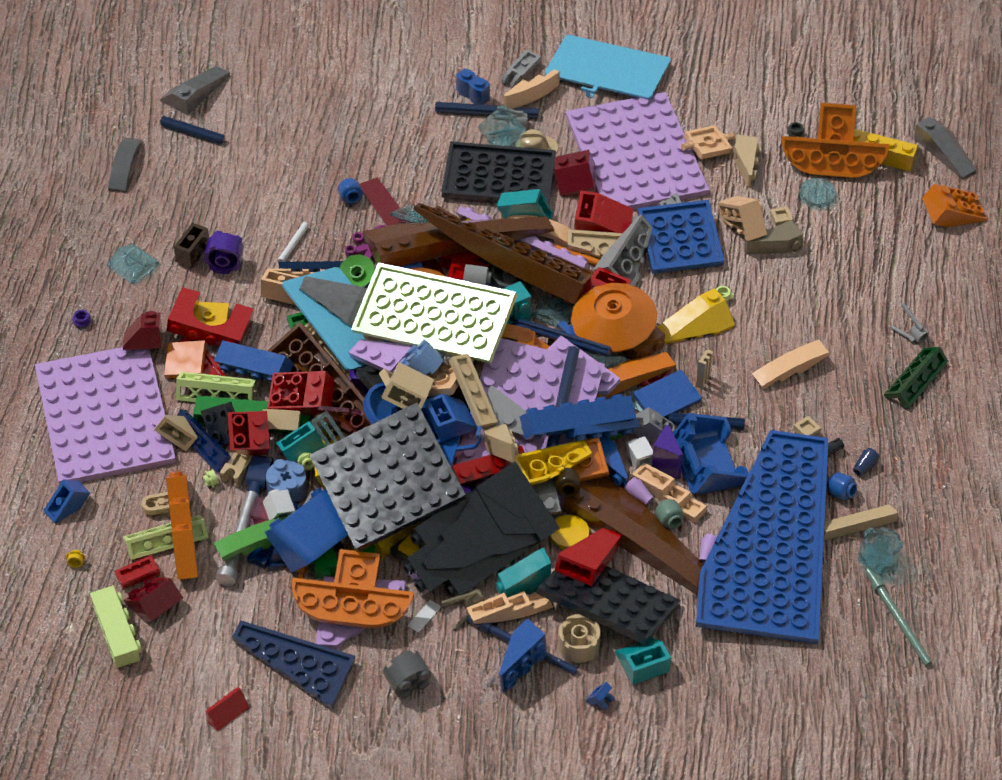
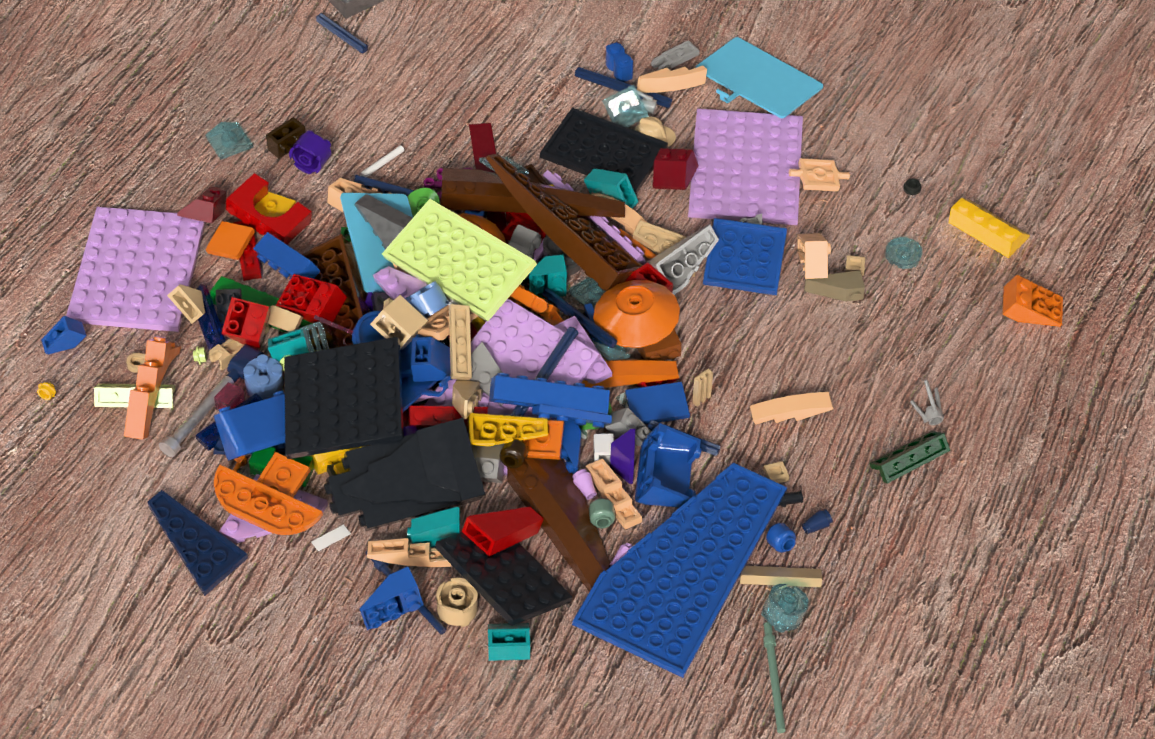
camera: 20 degrees right, 0 degrees up
(81, 318) = (158, 177): dark purple plate -> none
(115, 626) = (49, 461): yellowish green brick -> none
(123, 163) = (263, 46): dark grey slope -> none
(137, 572) = (93, 419): red plate -> none
(153, 598) = (96, 446): dark red slope -> none
(212, 383) = (242, 268): yellowish green fence -> none
(227, 709) = (111, 565): red slope -> none
(245, 540) = (196, 419): bright green slope -> none
(278, 504) = (241, 394): white brick -> none
(350, 191) = (456, 128): blue head -> none
(407, 673) = (284, 584): dark grey brick -> none
(469, 599) = (376, 534): dark tan plant -> none
(571, 531) = (500, 498): yellow tile -> none
(599, 694) = (452, 659): blue tile -> none
(601, 214) = (678, 213): red slope -> none
(701, 316) = (728, 337): yellow wedge -> none
(725, 292) = (759, 323): yellowish green plate -> none
(745, 157) = (851, 195): tan slope -> none
(834, 149) = (938, 214): orange plate -> none
(944, 146) = (1054, 242): flat silver wedge -> none

